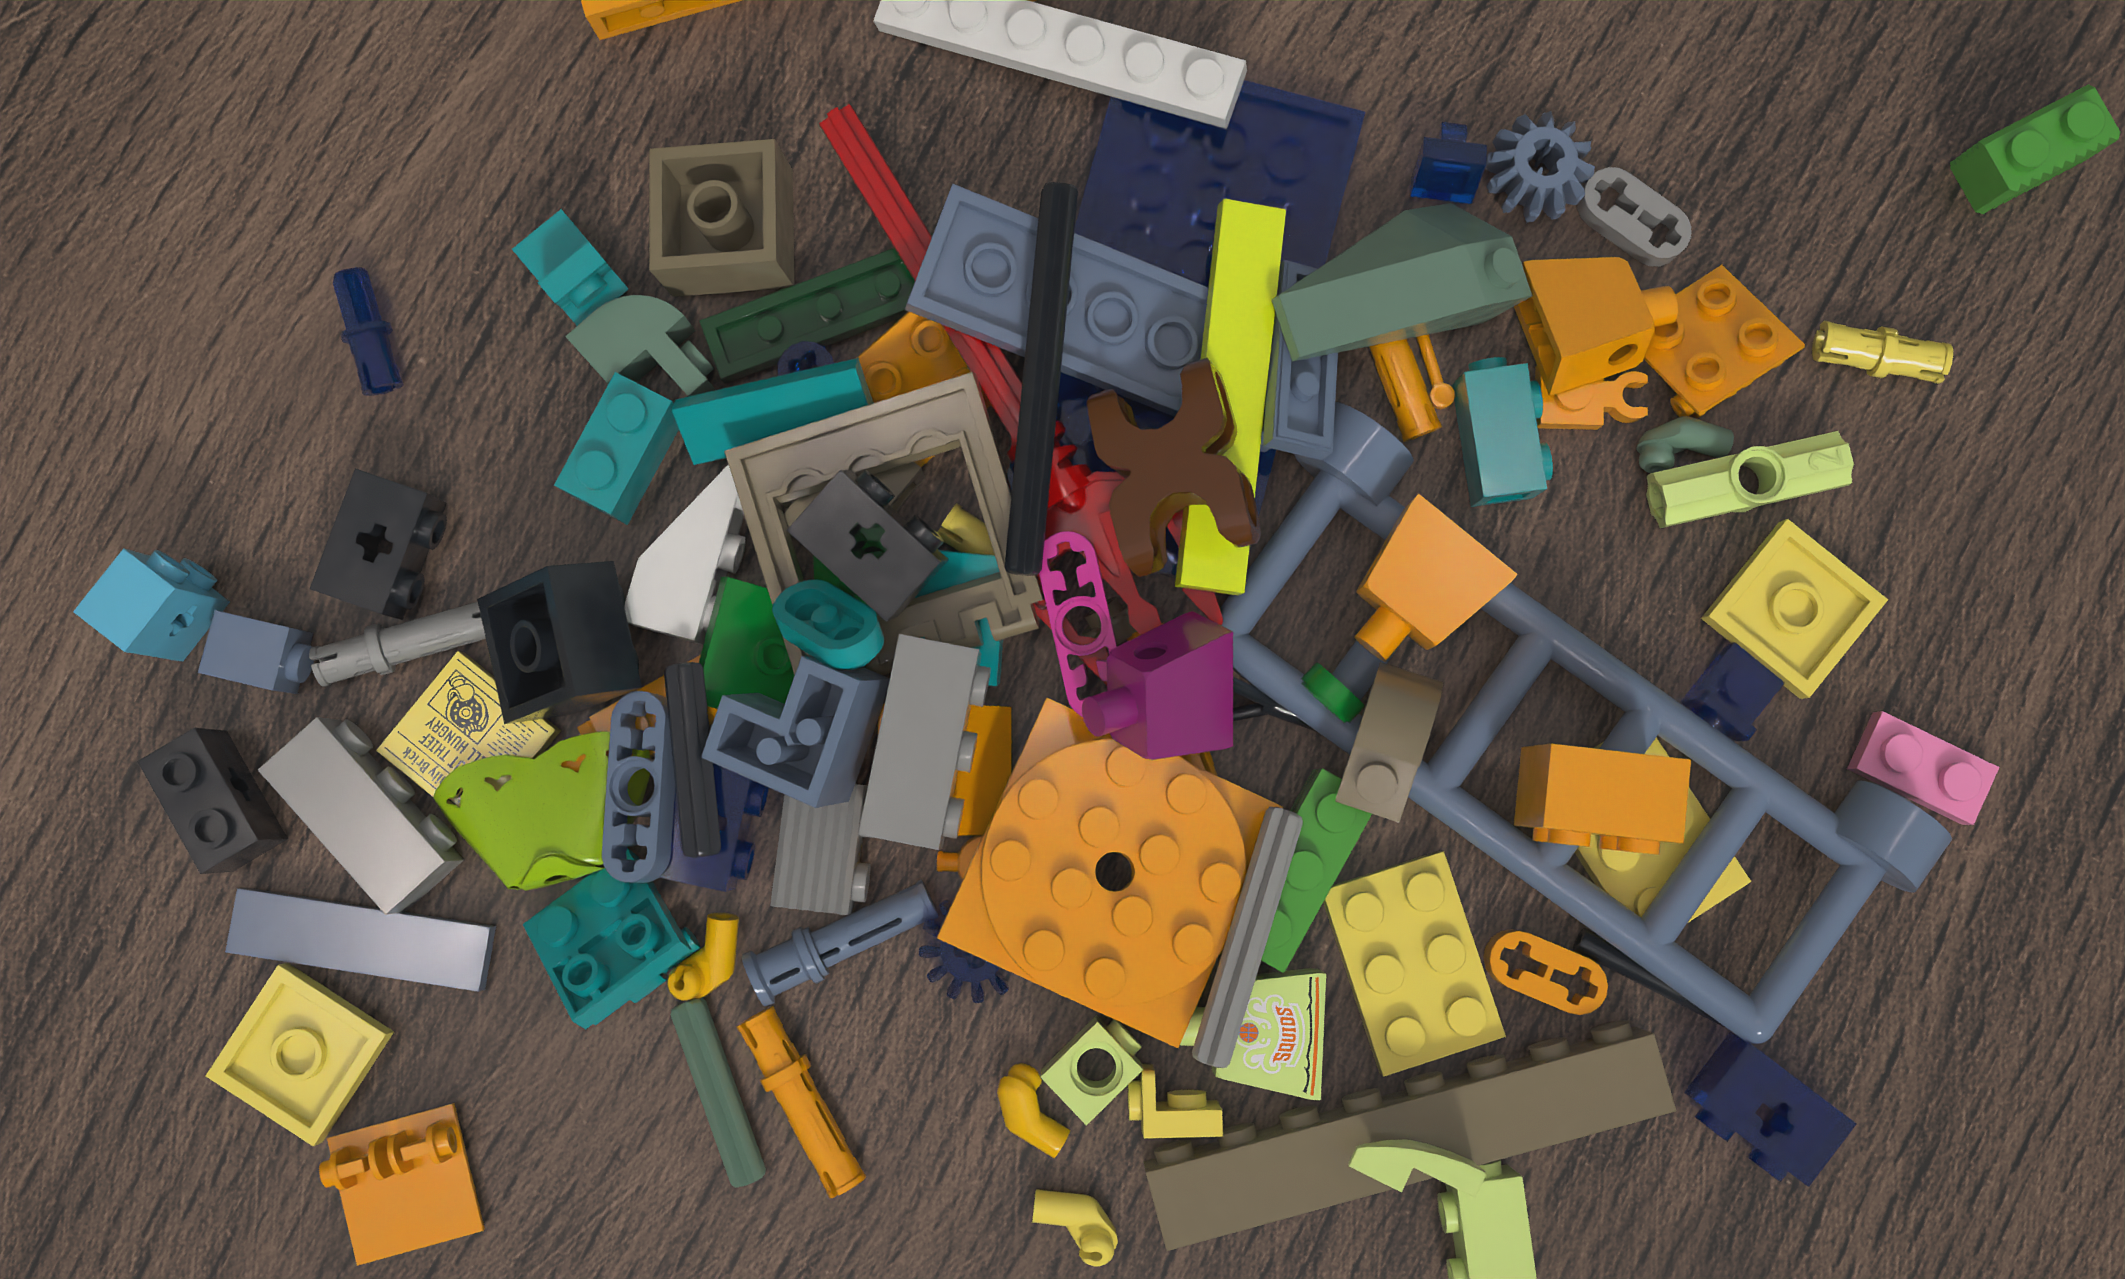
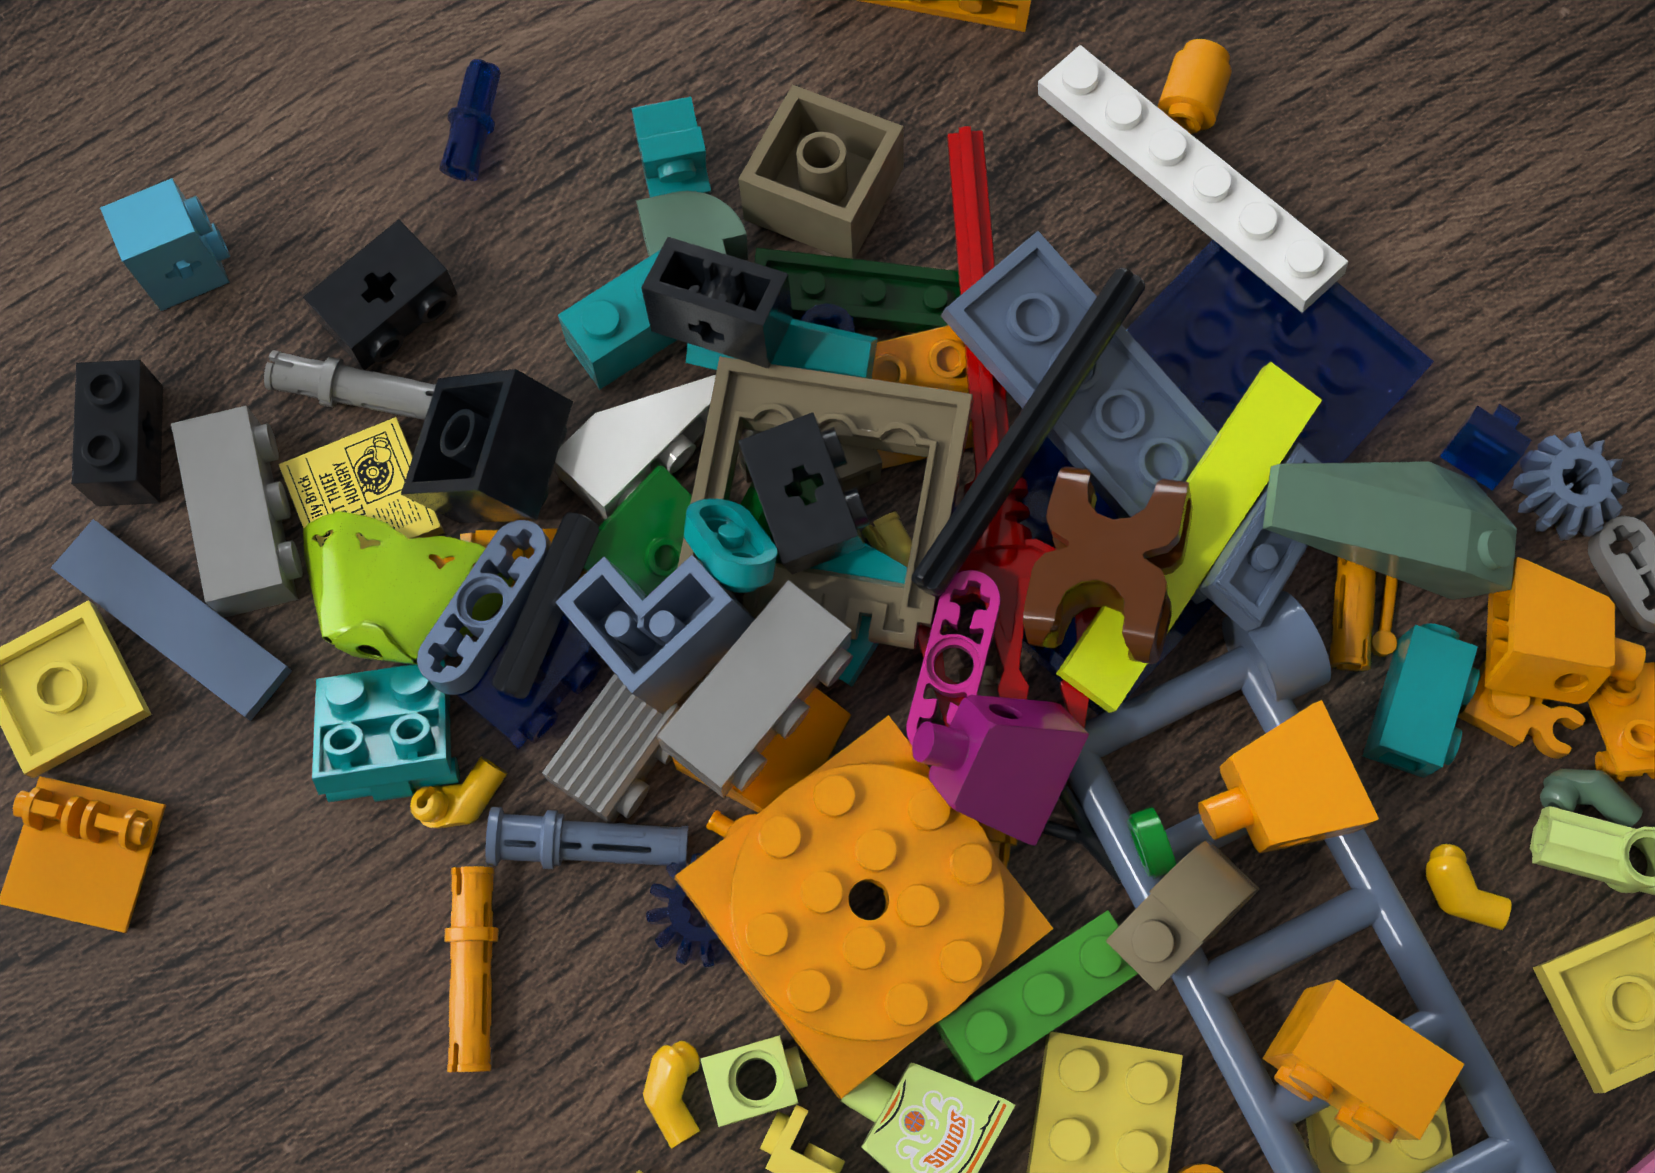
camera: 25 degrees right, 10 degrees down
(256, 653) = (227, 330): sand blue brick -> none
(696, 405) = (718, 302): none -> black brick
(718, 1092) = (401, 922): sand green axle -> none
(1247, 937) = (959, 1026): light grey axle -> none
(1608, 586) = (1457, 891): none -> yellow arm
(1733, 692) = (1533, 1052): clear blue bracket -> none

